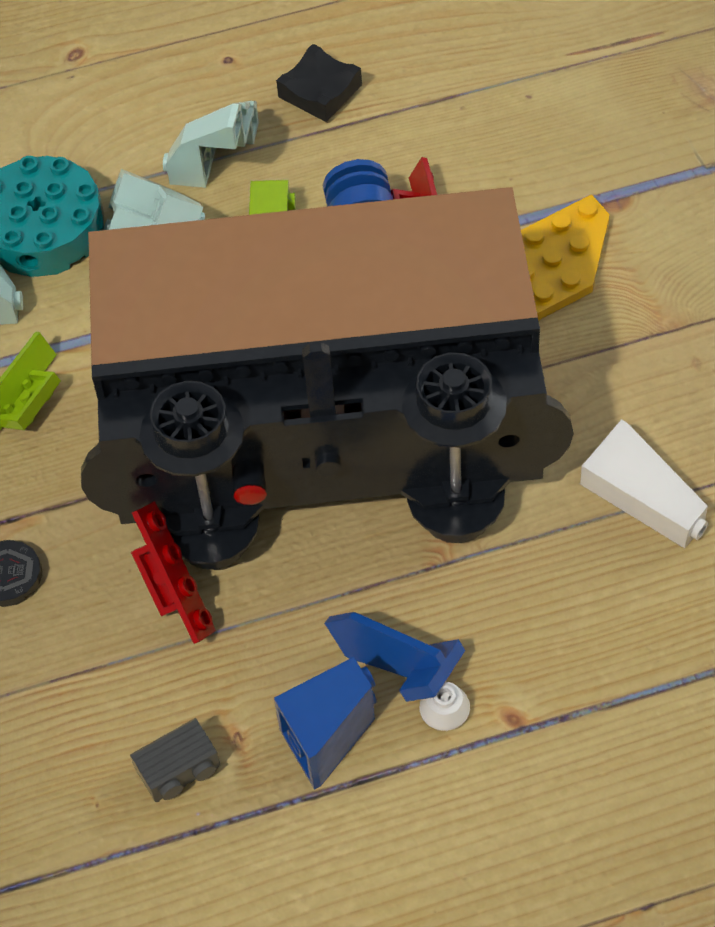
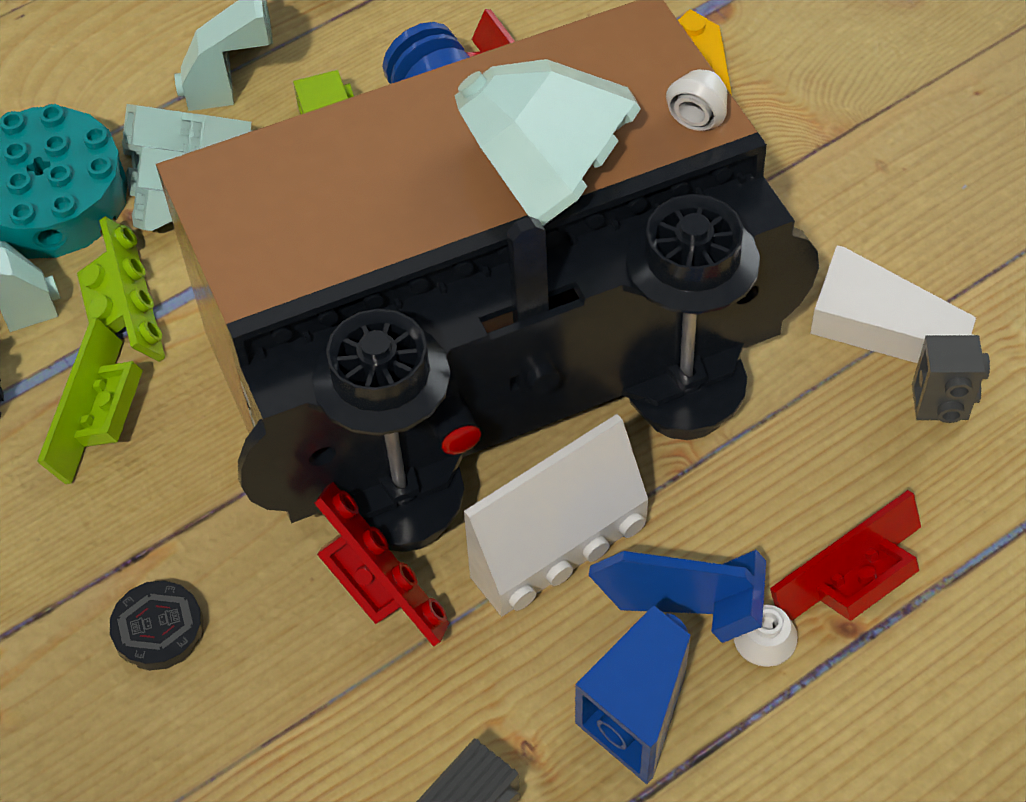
camera: 20 degrees left, 0 degrees up
(65, 316) = (118, 293): none -> lime bracket
(314, 572) = (555, 517): none -> white slope
(366, 273) = (544, 128): none -> light aqua brick
(497, 281) = (698, 100): none -> white cone
(533, 673) = (857, 566): none -> red bracket
(665, 548) = (949, 377): none -> dark grey brick

